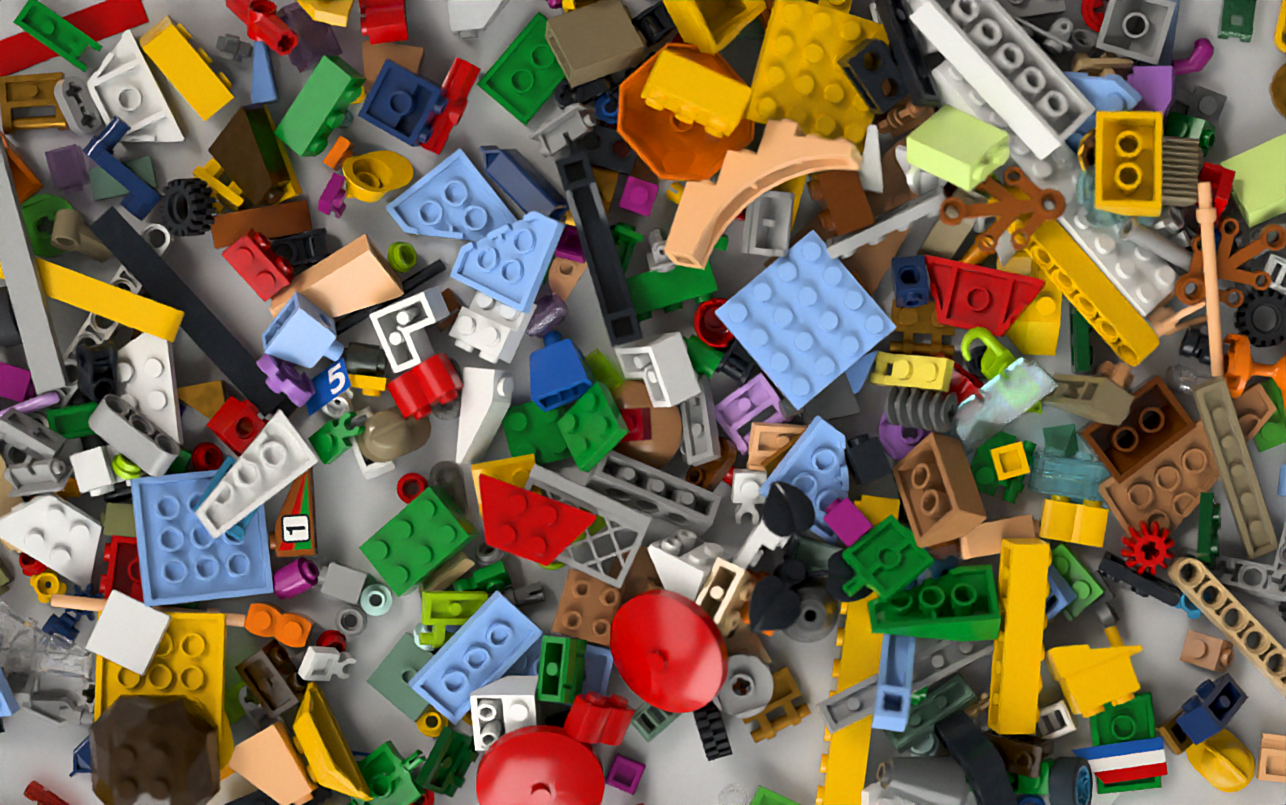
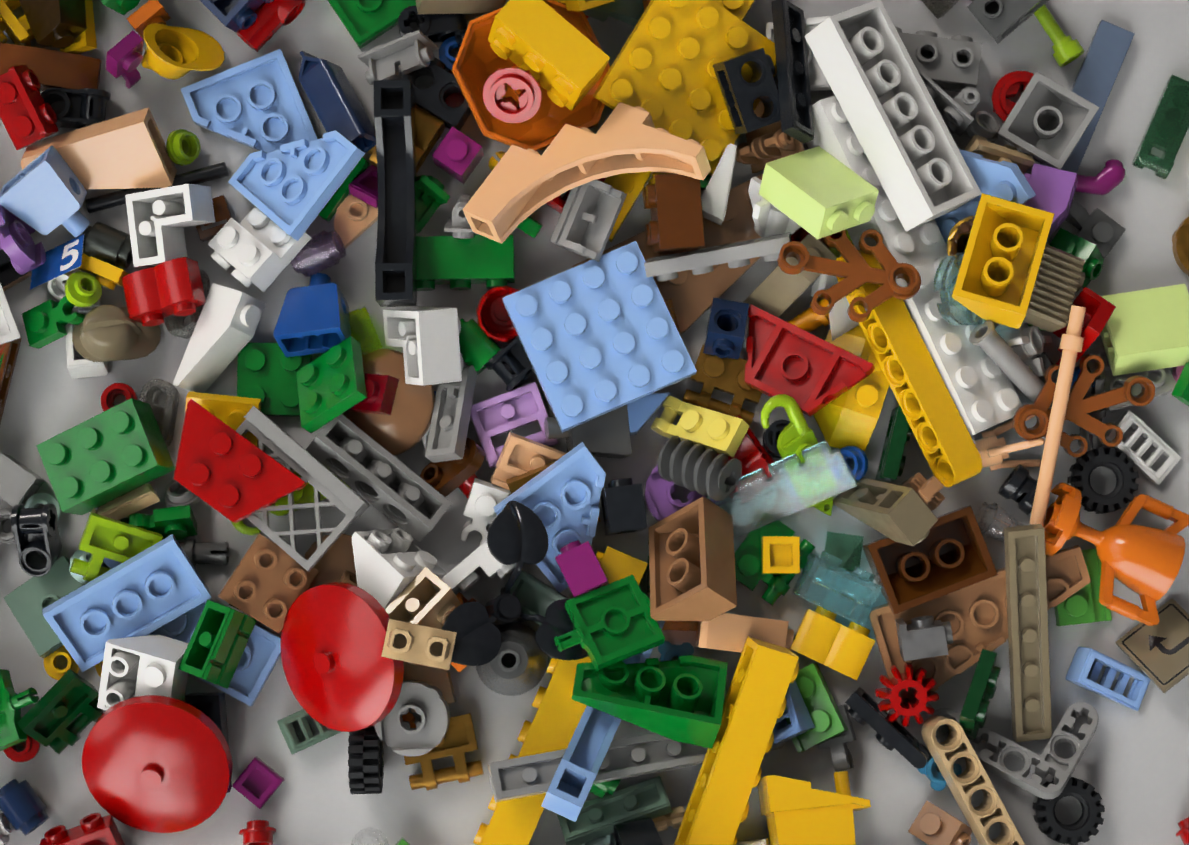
camera: 10 degrees right, 5 degrees down
(352, 409) = (77, 295): none -> lime plate
(380, 620) = (36, 531): none -> black piece
(599, 718) = (243, 711): red brick -> none
(676, 152) = (507, 108): none -> gear
(735, 624) = (419, 644): none -> tan hips
(1054, 360) = (860, 460): none -> blue plate
(1148, 496) = (923, 638): none -> flat silver brick

